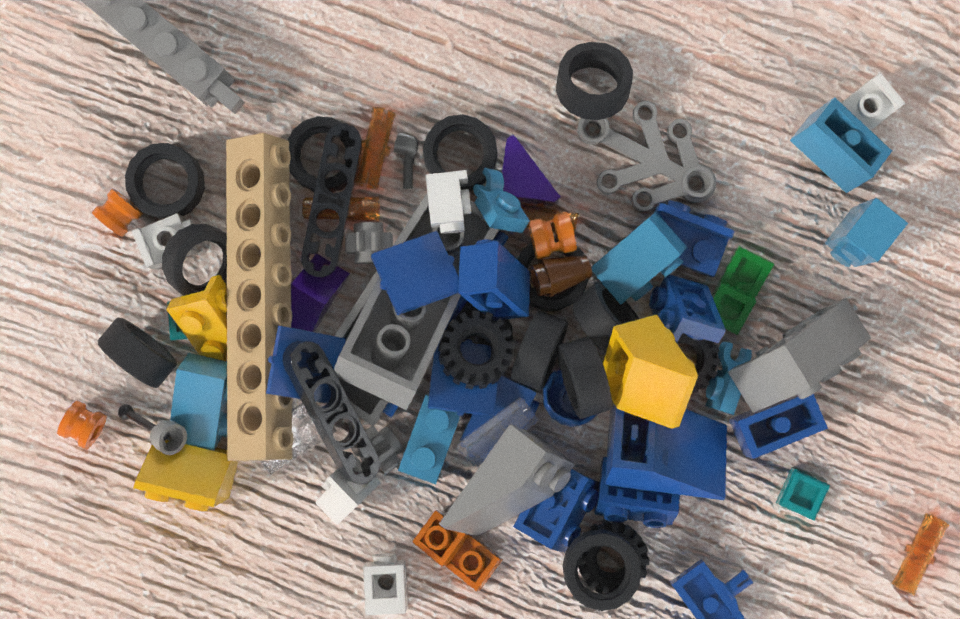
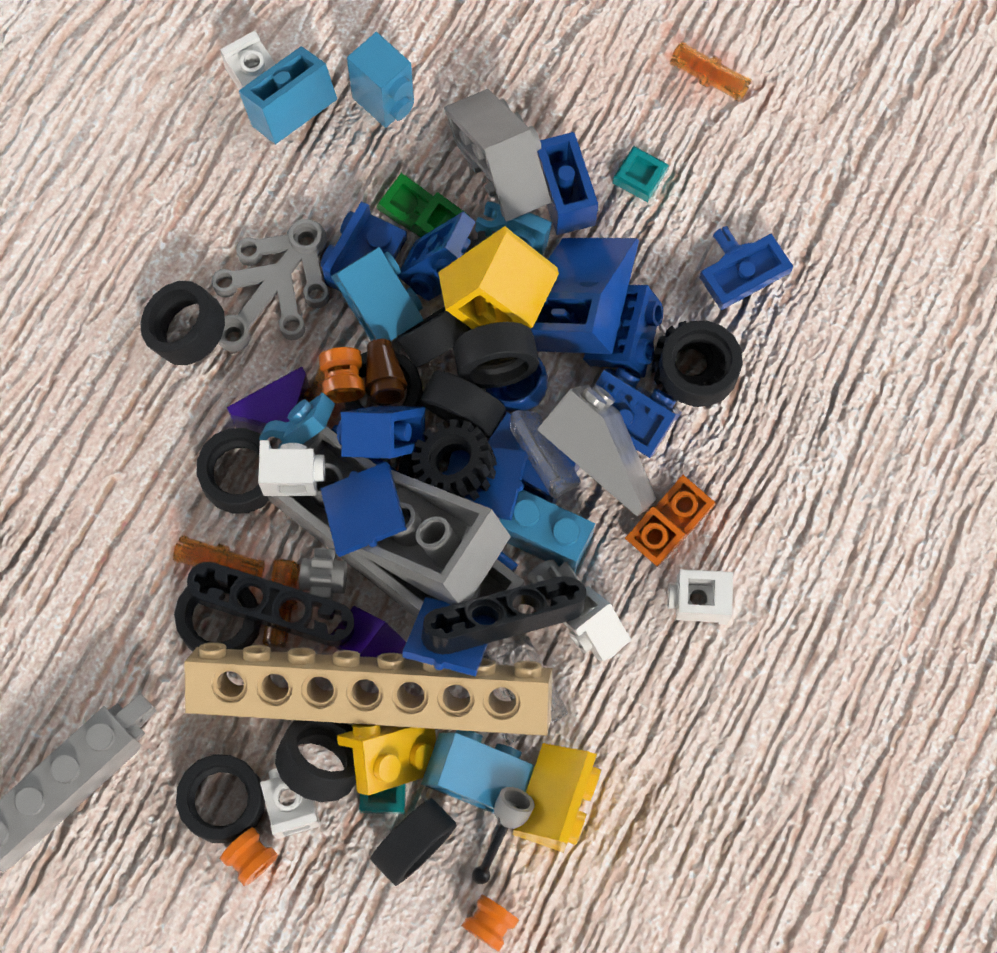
camera: 85 degrees left, 15 degrees down
(407, 146) = (222, 526): dark grey hand -> none

